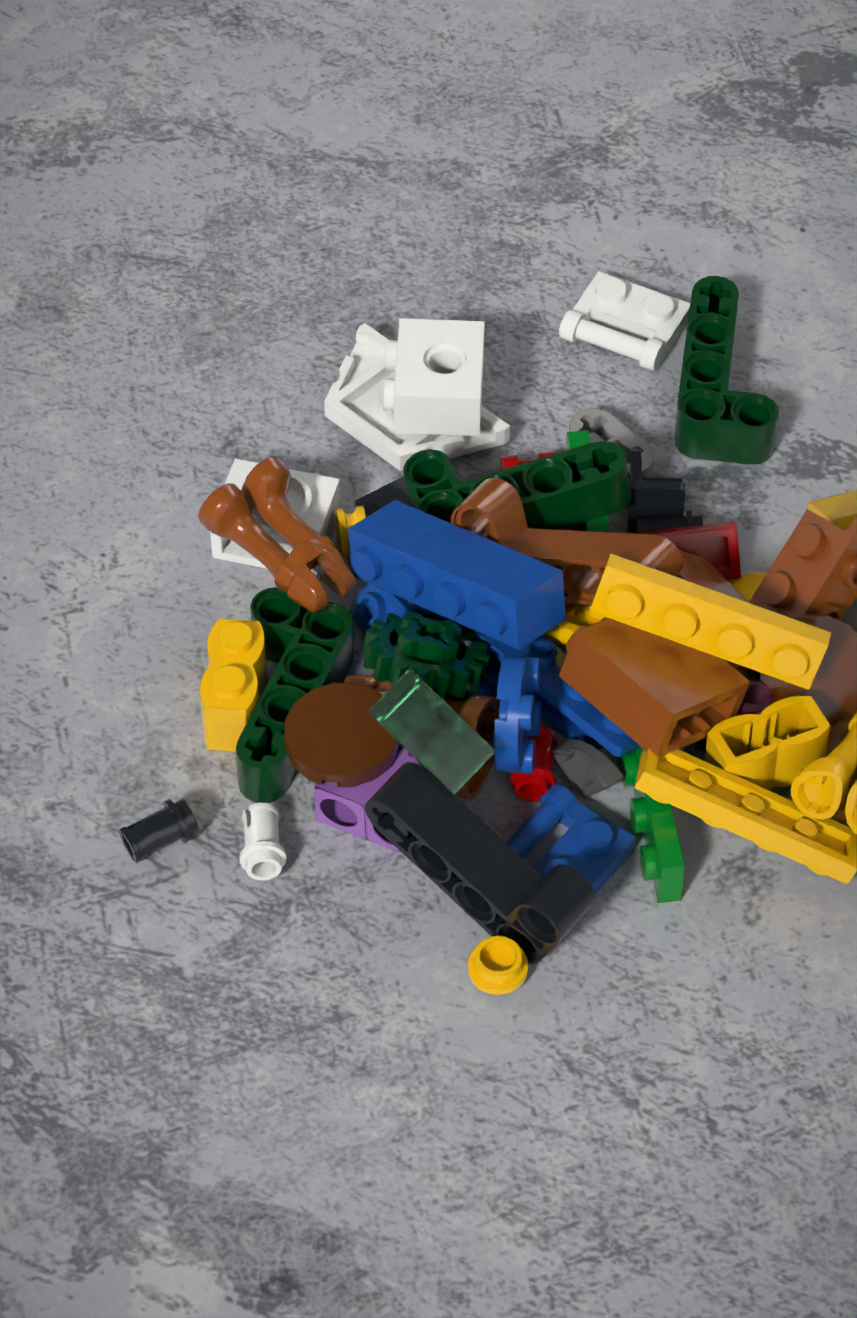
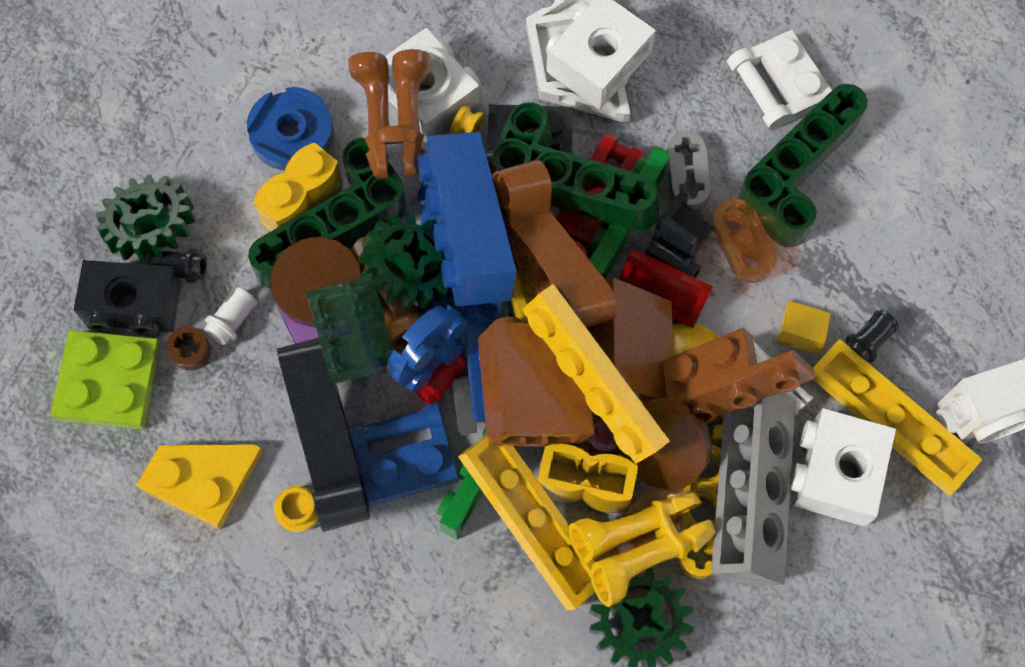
camera: 35 degrees right, 20 degrees up
(88, 802) = (145, 218): none -> dark green gear
(105, 886) = (107, 283): none -> black brick
(156, 665) = (275, 110): none -> blue plate
(179, 983) = (105, 380): none -> lime plate
(252, 886) = (180, 336): none -> reddish brown bush
(367, 1007) = (200, 478): none -> yellow wing
(725, 473) = (744, 243): none -> clear orange plate

